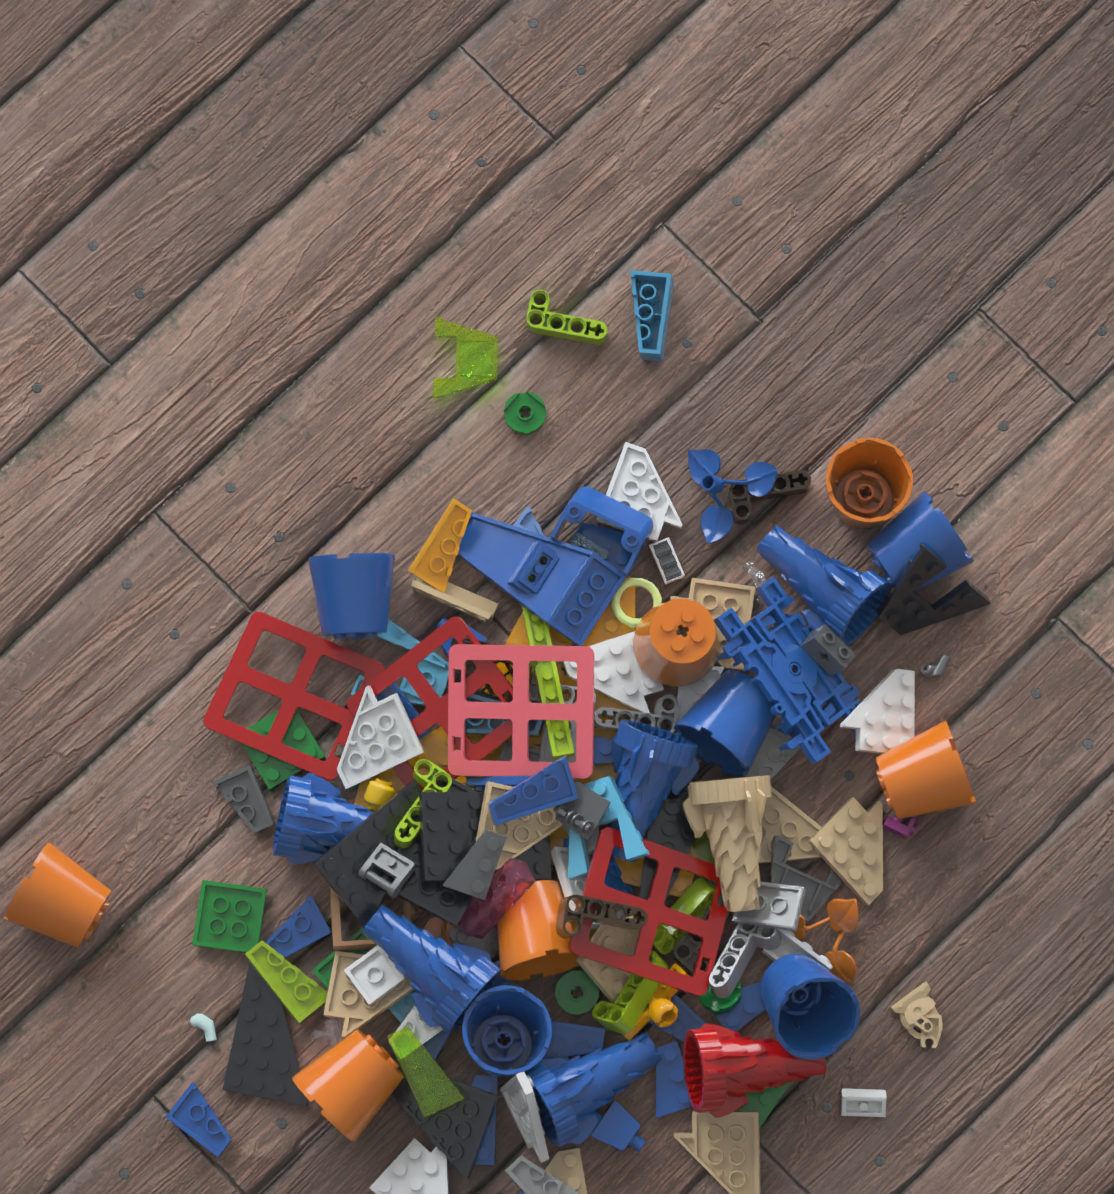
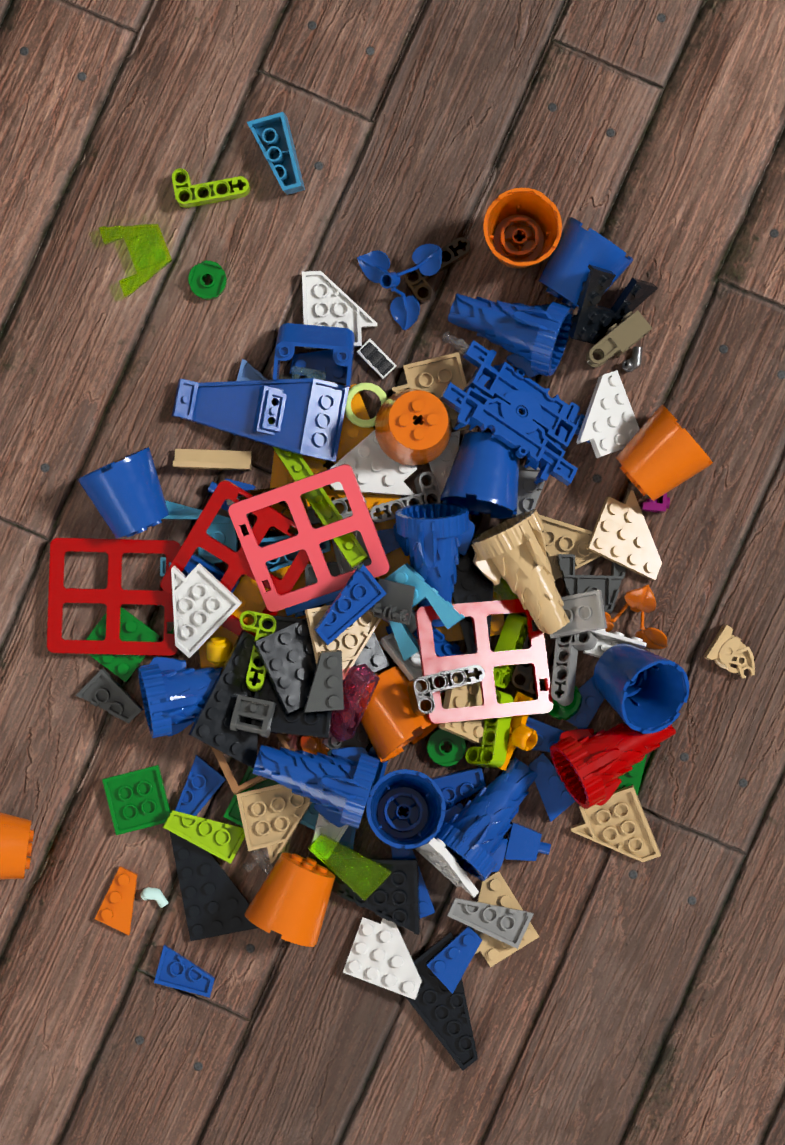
camera: 25 degrees left, 10 degrees up
(162, 1020) = (119, 901): none -> orange wing
(374, 975) = (276, 803): white tile -> none
(439, 552) = (184, 430): light orange wing -> none
(828, 650) = (542, 383): dark grey brick -> none
(863, 1102) = (712, 741): white slope -> none
(928, 638) = (619, 338): none -> dark tan brick

